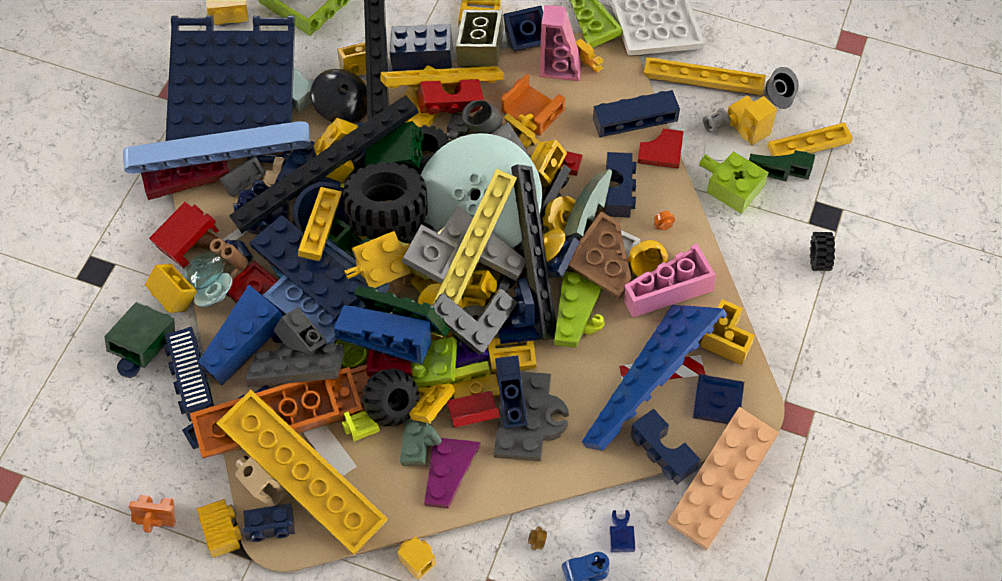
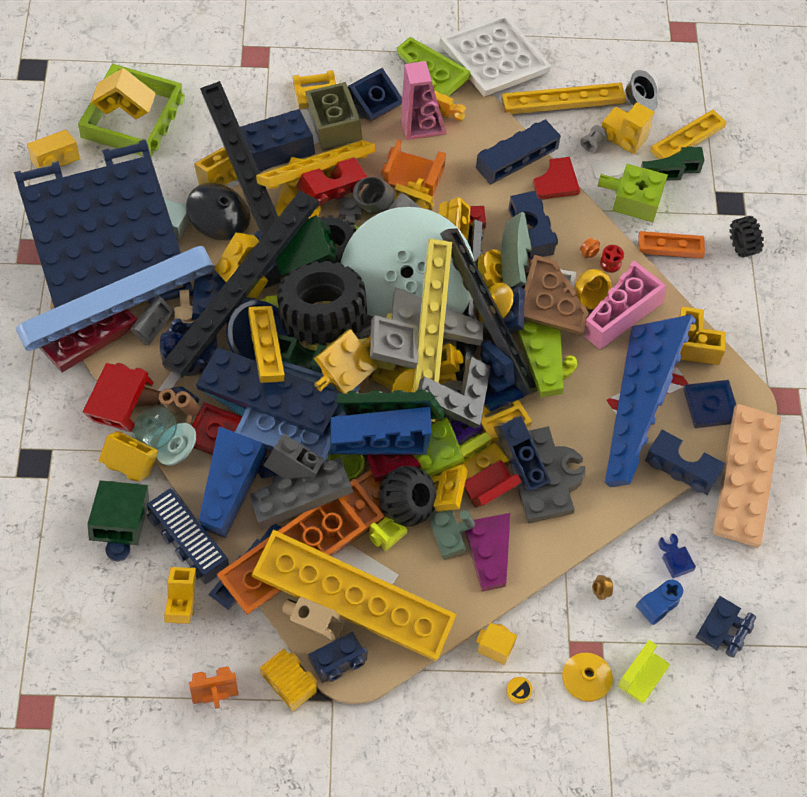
camera: 25 degrees left, 0 degrees up
(161, 423) = (181, 595): none -> yellow brick
(681, 230) = (609, 253): none -> red wheel
(747, 239) = (671, 244): none -> orange plate

